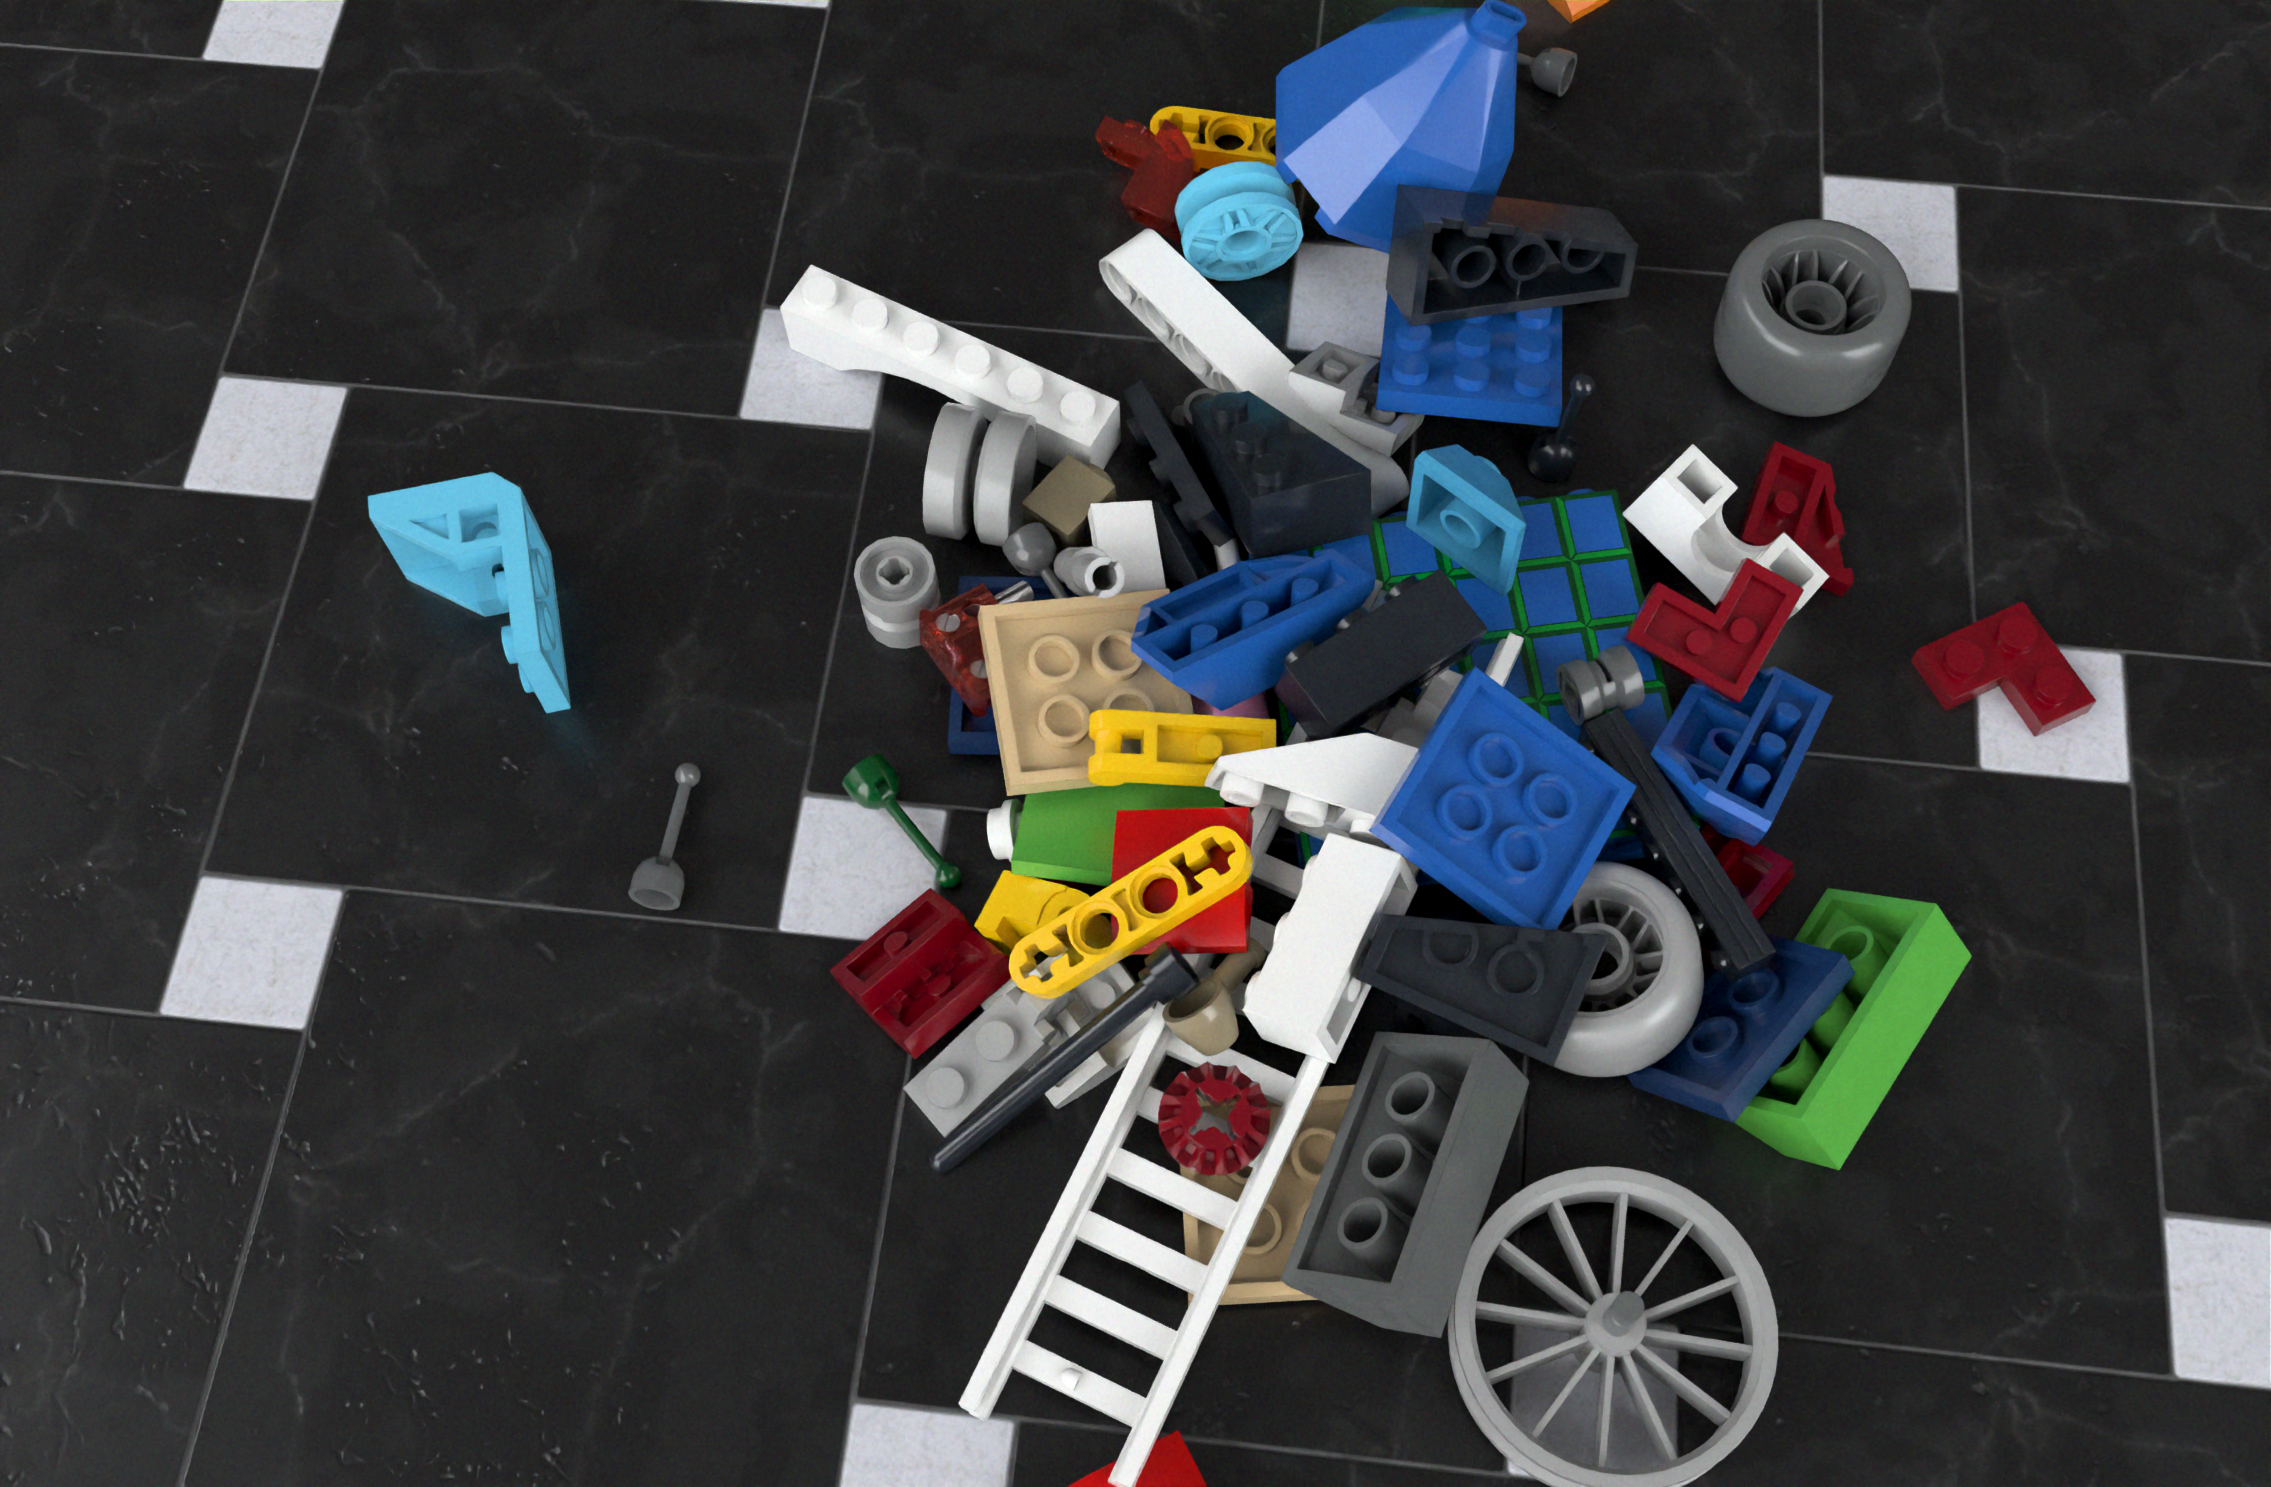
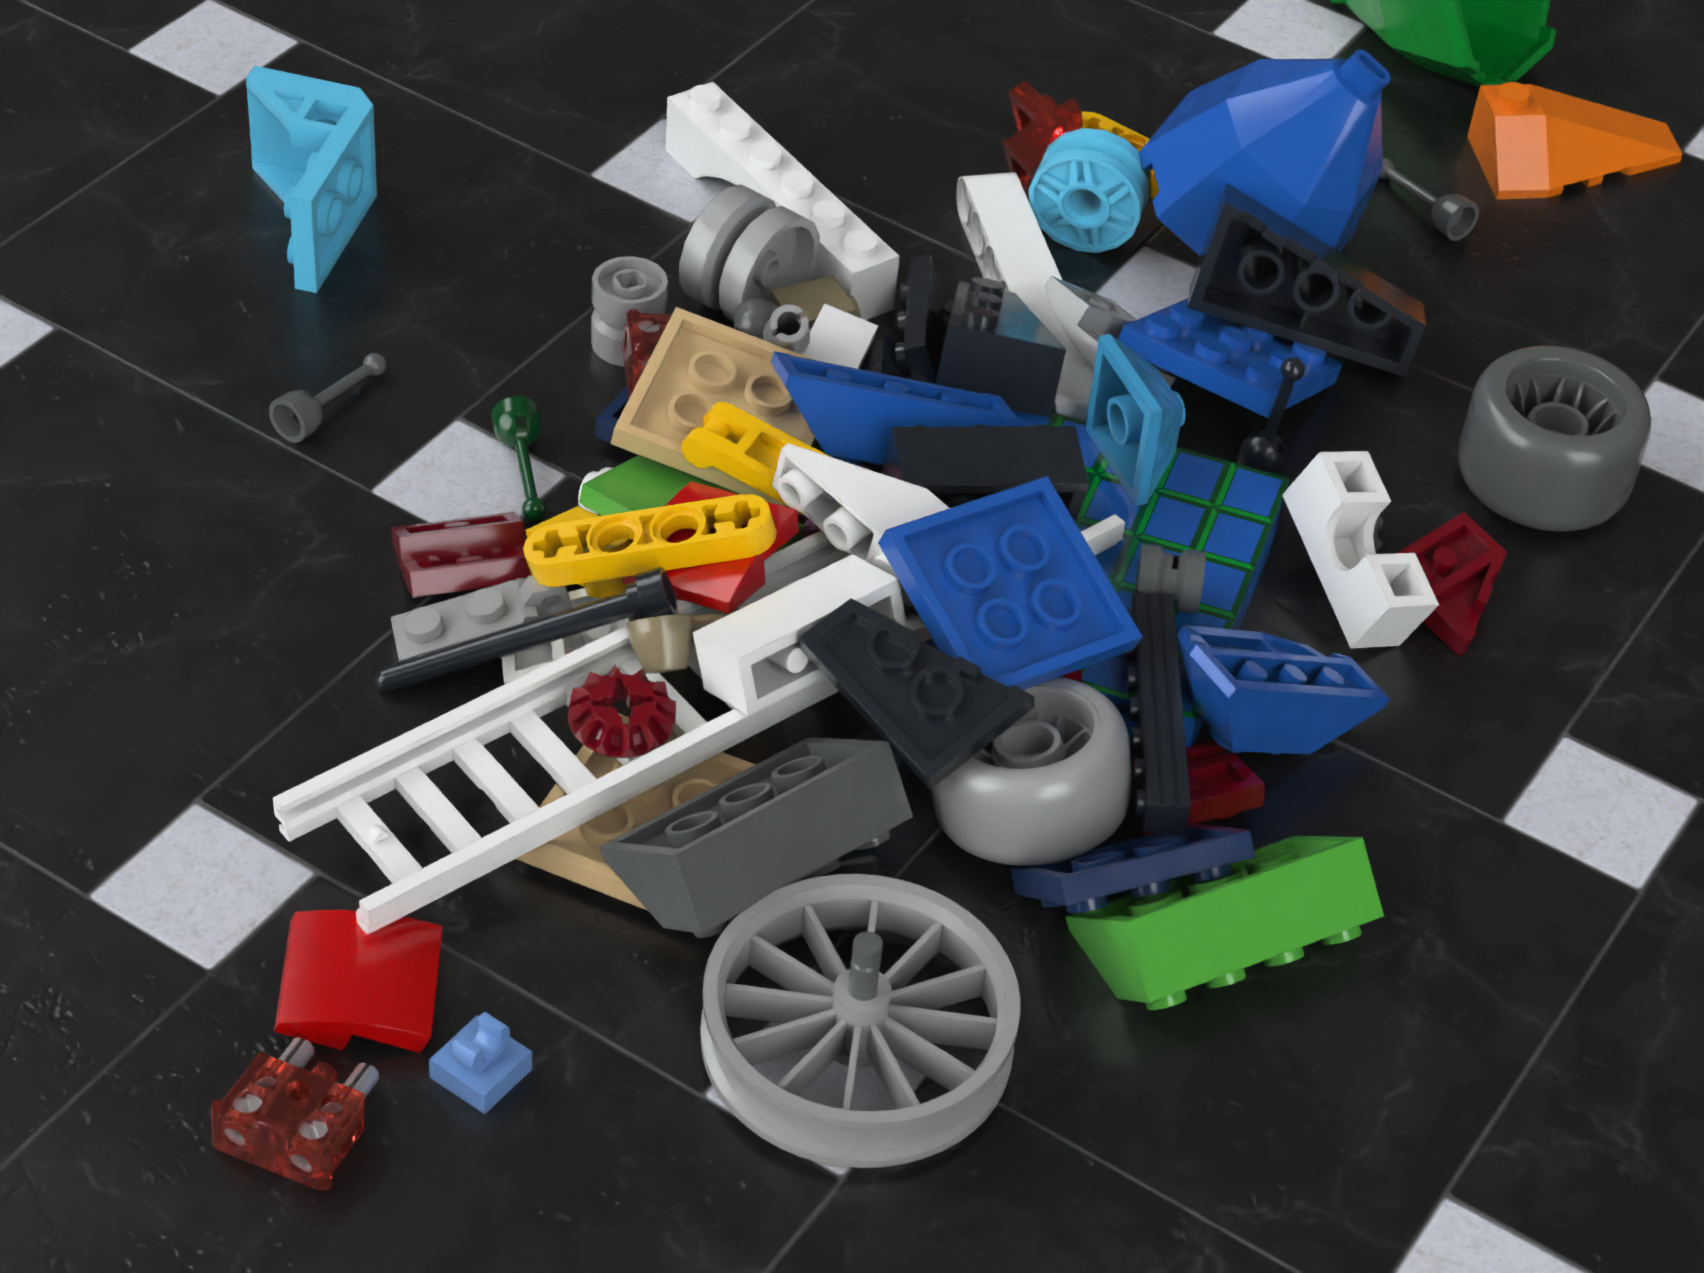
camera: 20 degrees right, 20 degrees down
(1718, 646) = (1299, 602): dark red plate -> none
(2008, 653) = (1581, 746): dark red plate -> none

